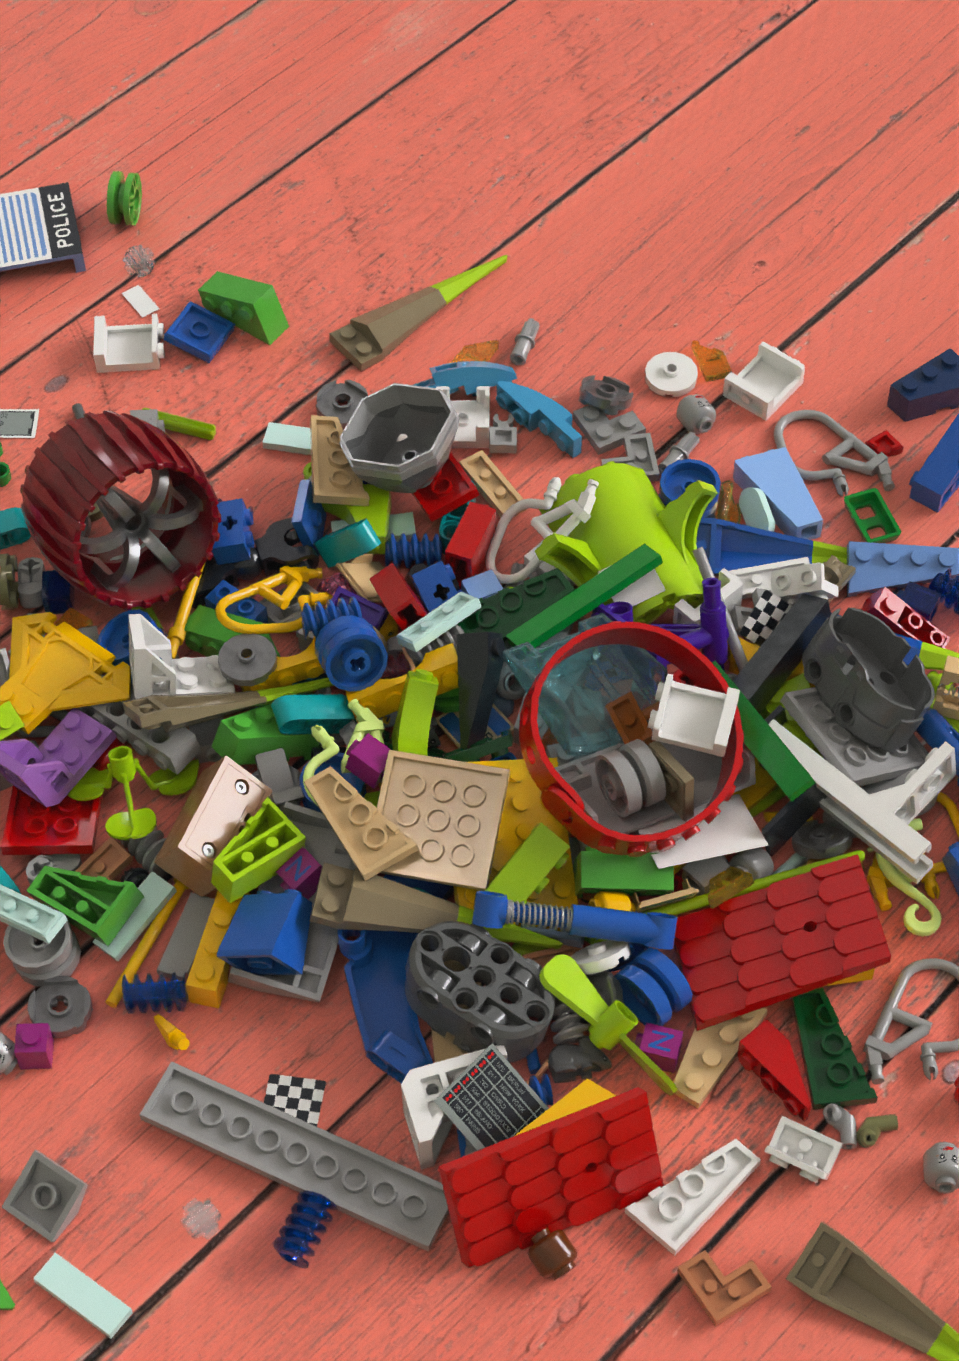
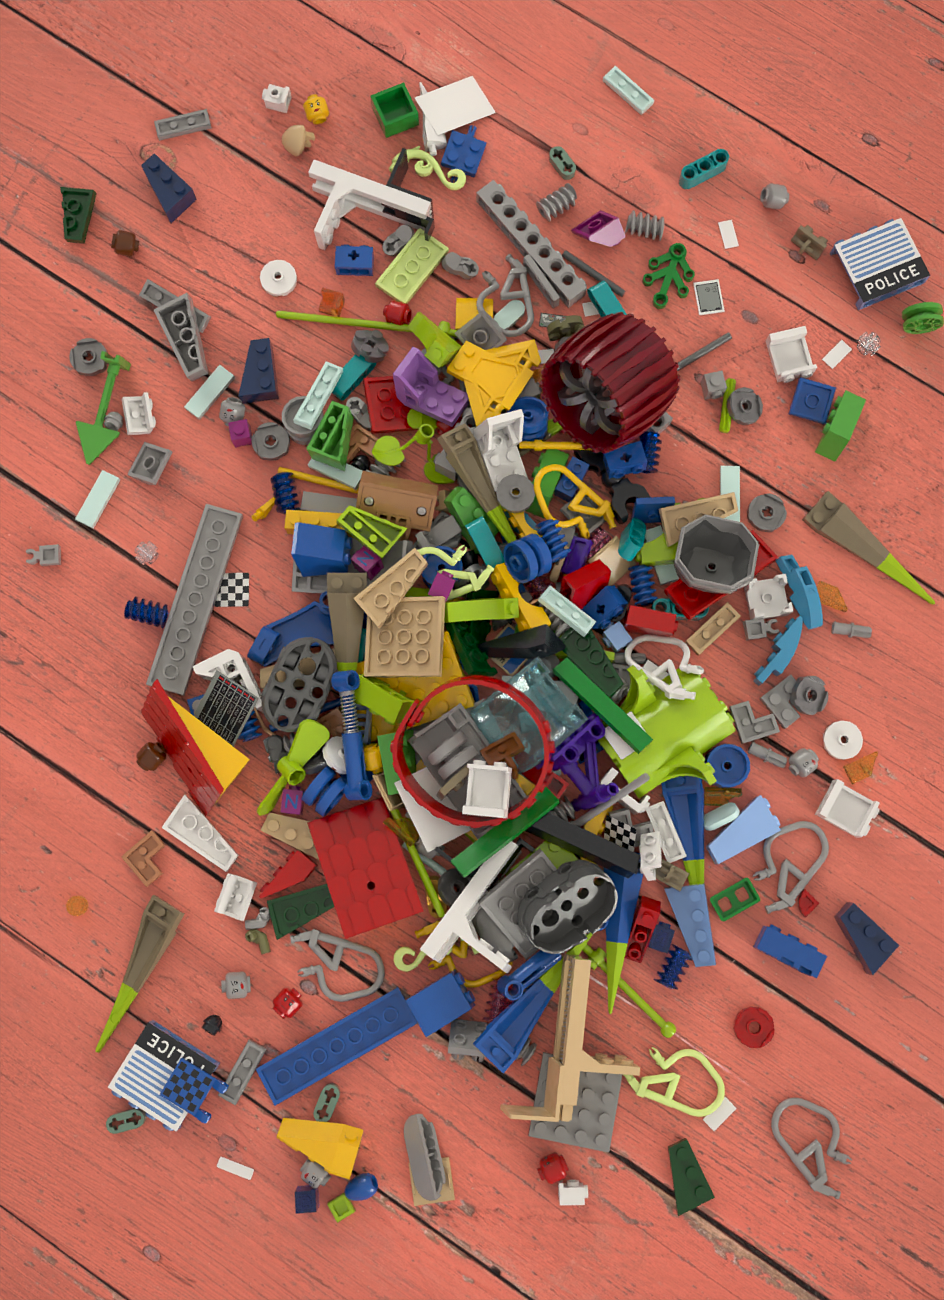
camera: 80 degrees right, 25 degrees up
(185, 402) = (752, 406): none -> flat silver plate

